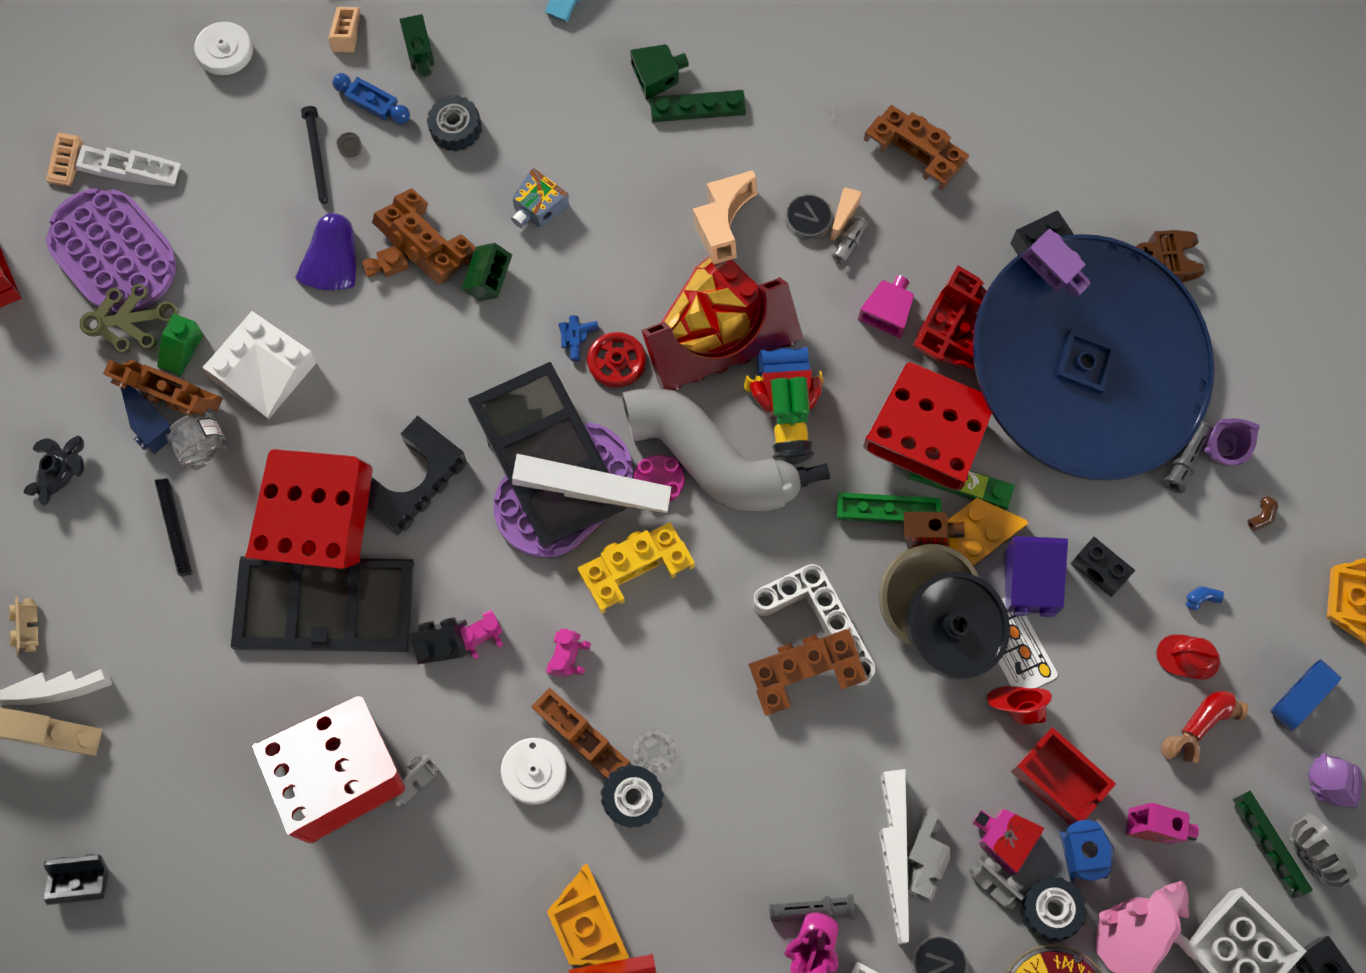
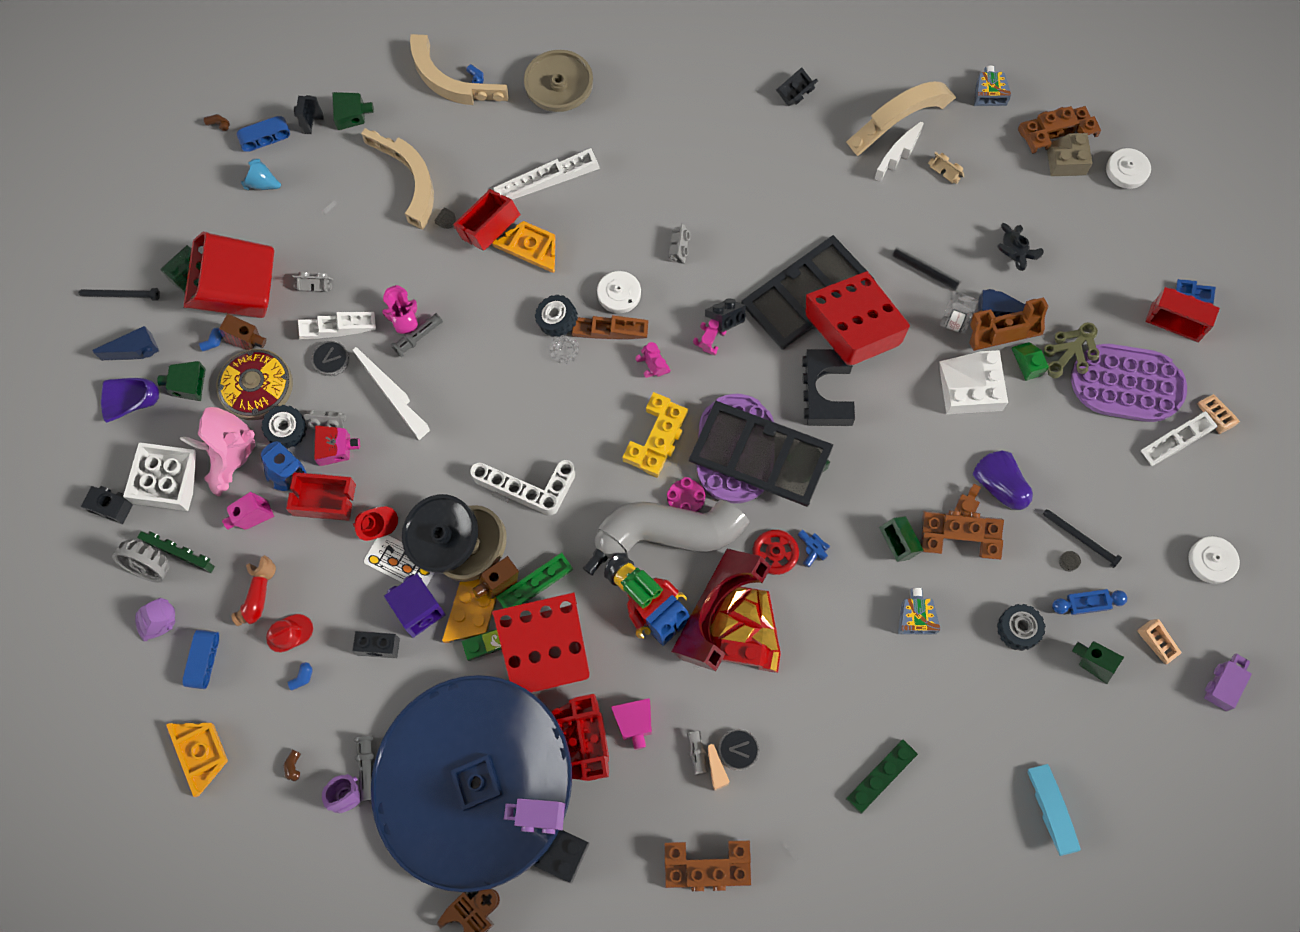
camera: 145 degrees right, 0 degrees up
(334, 768) = (717, 211): piece -> none
(590, 484) = (718, 449): white slope -> none
(656, 68) = (932, 779): dark green torso -> none
(715, 219) = (792, 686): light nougat arch -> none
(798, 663) = (514, 450): dark orange bracket -> none
(929, 858) = (372, 402): light grey plate -> none

